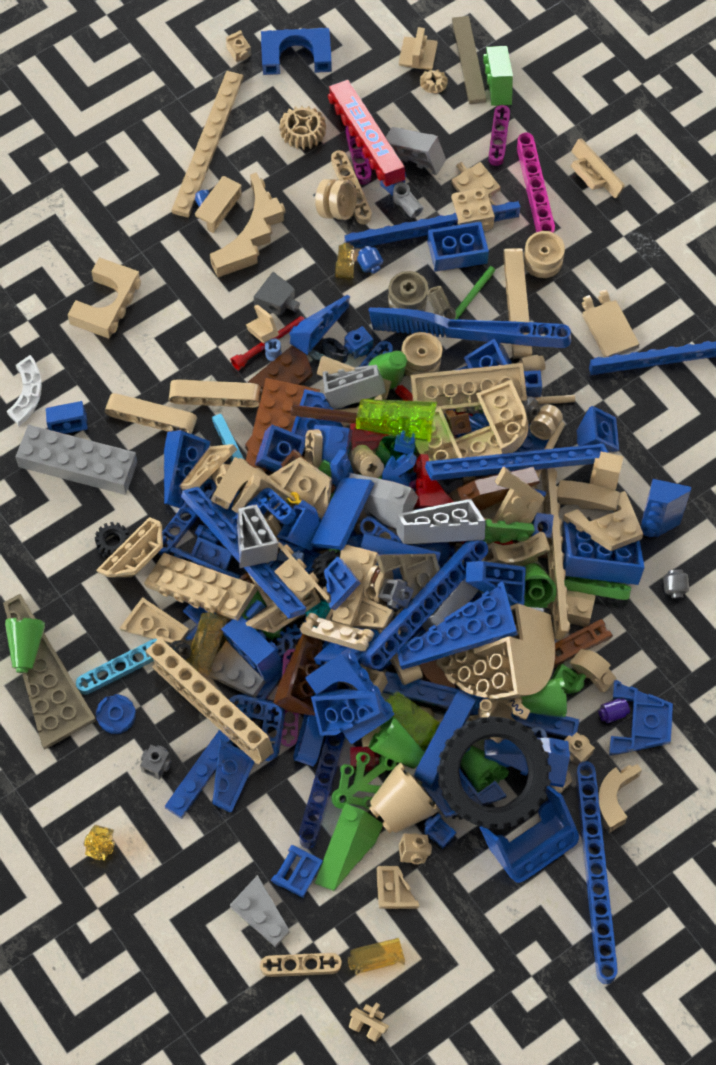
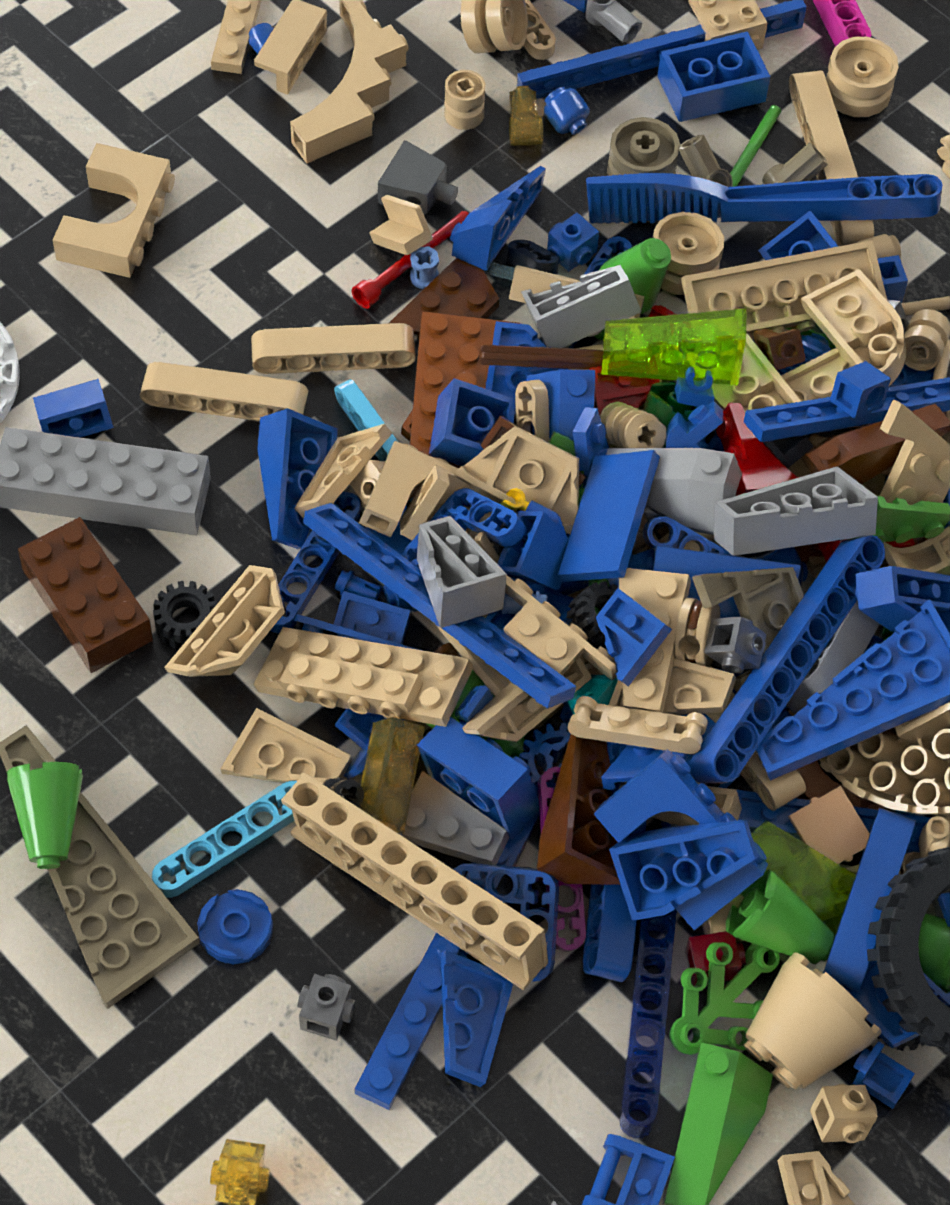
camera: 10 degrees left, 5 degrees down
(60, 523) = (85, 594): none -> reddish brown brick
(312, 248) = (464, 99): none -> tan wheel
(433, 696) = (831, 826): none -> light nougat piece
(492, 455) = (860, 389): none -> blue brick
(495, 310) = (799, 168): none -> dark tan piece

